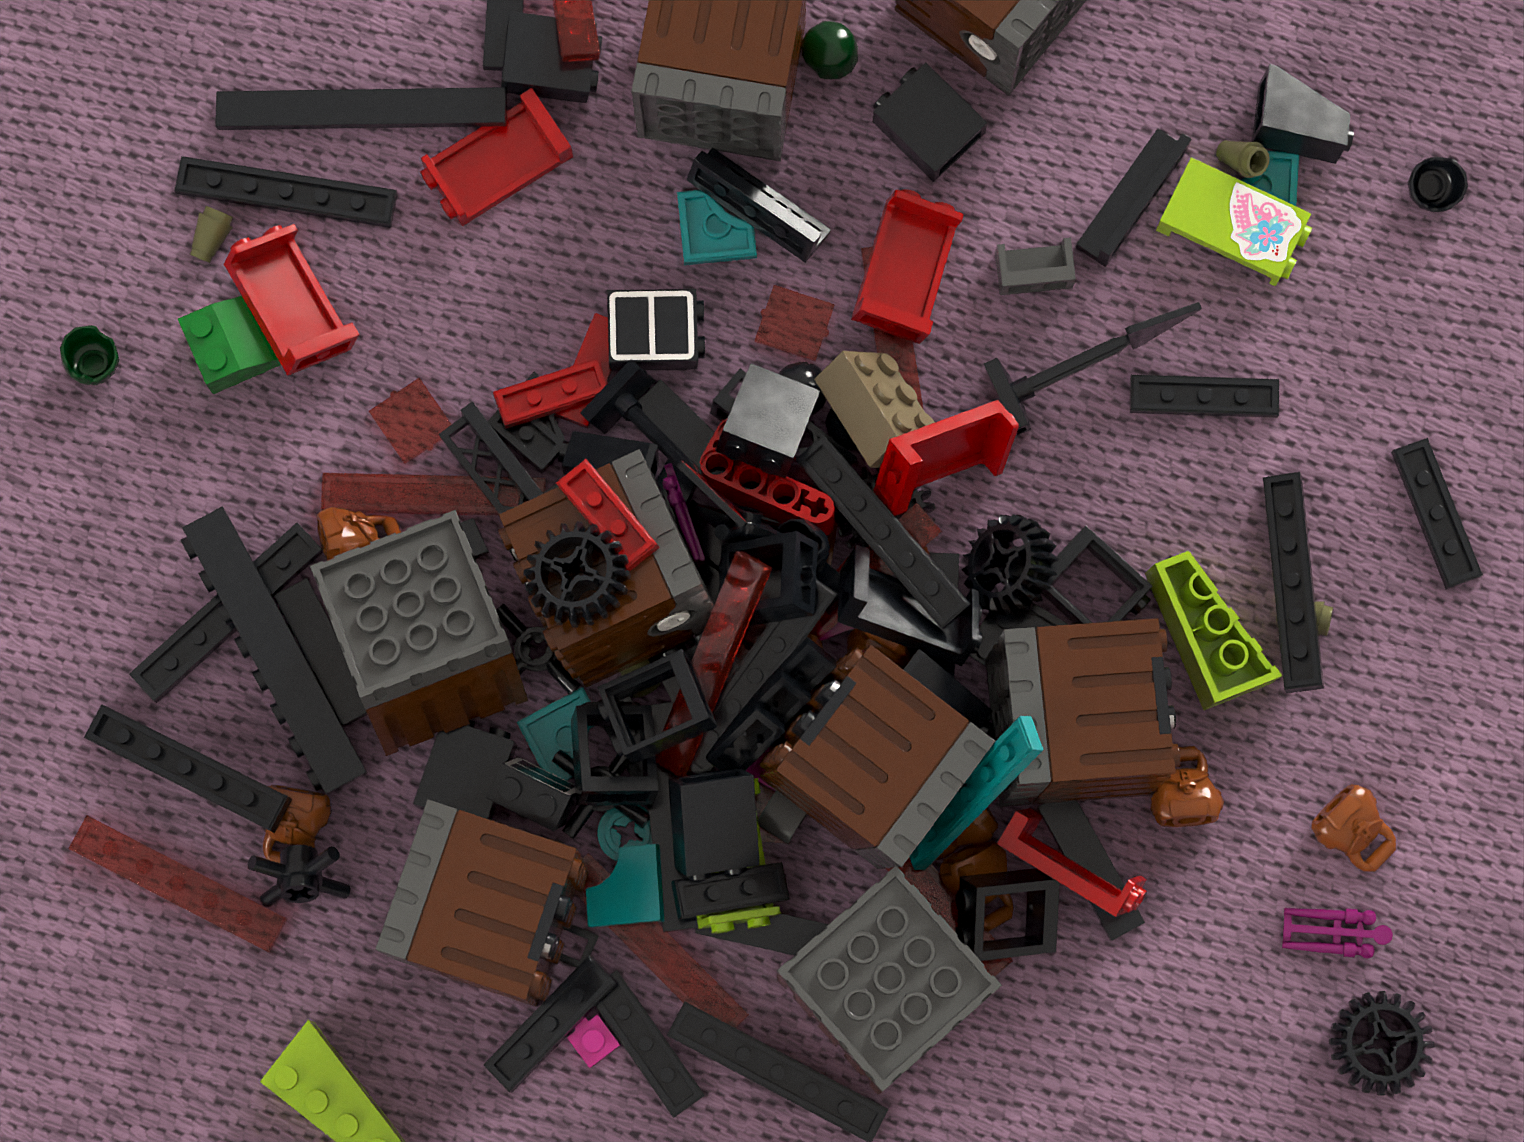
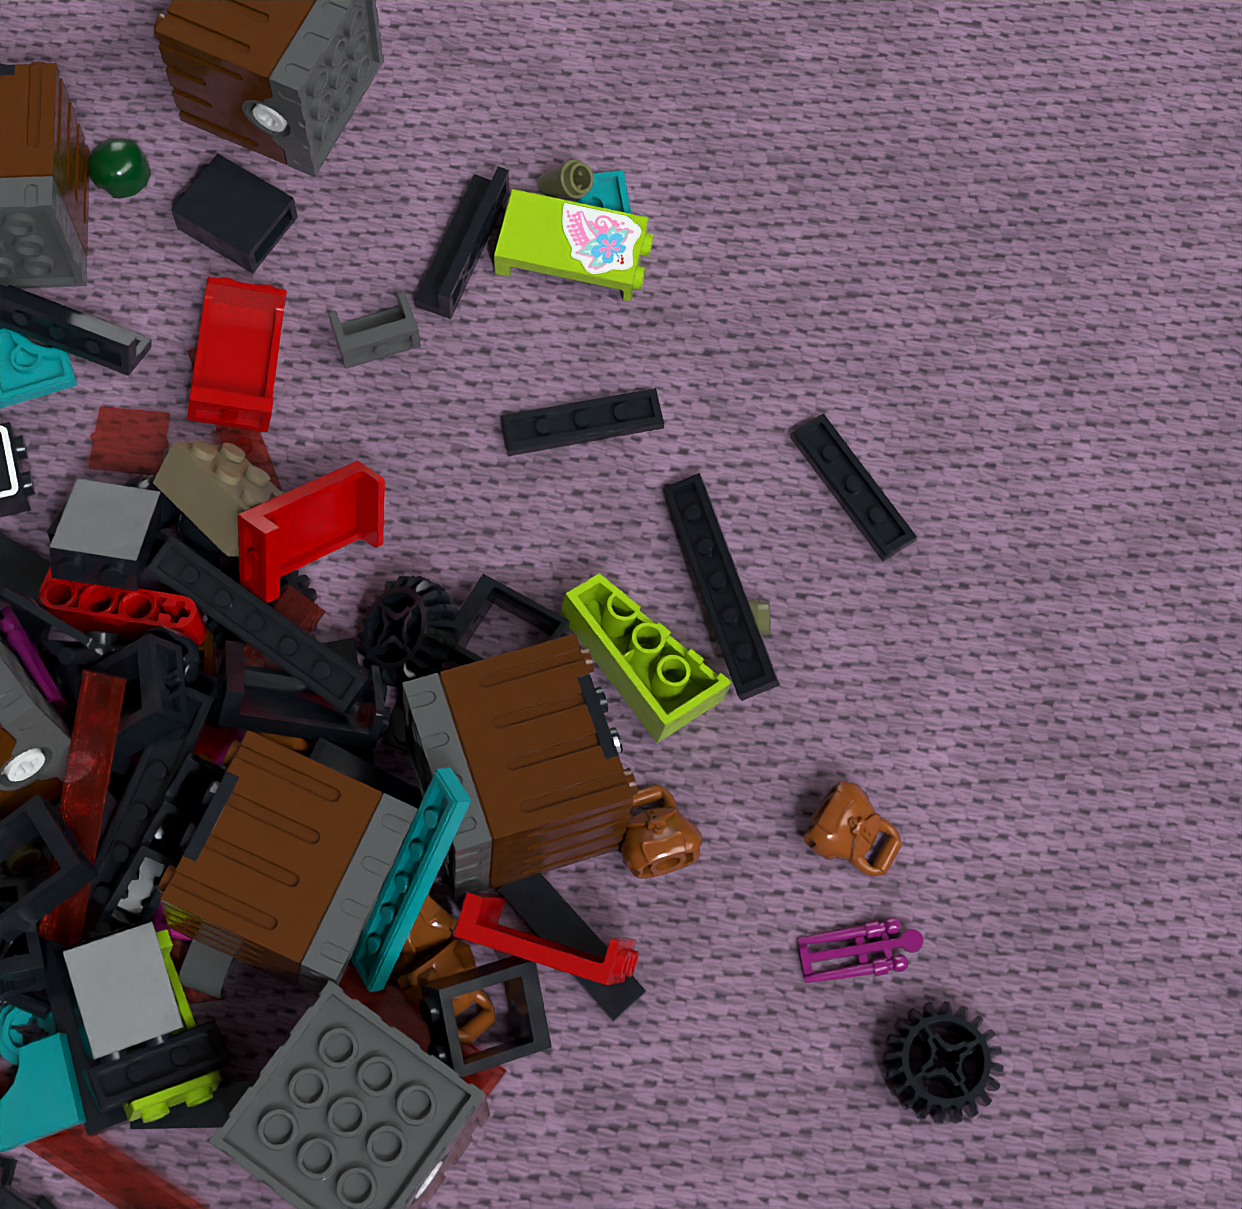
camera: 20 degrees left, 10 degrees down
(1014, 393) = (499, 367): black piece -> none
(1299, 119) = (616, 135): slope -> none
(1437, 184) = (769, 168): black hair -> none

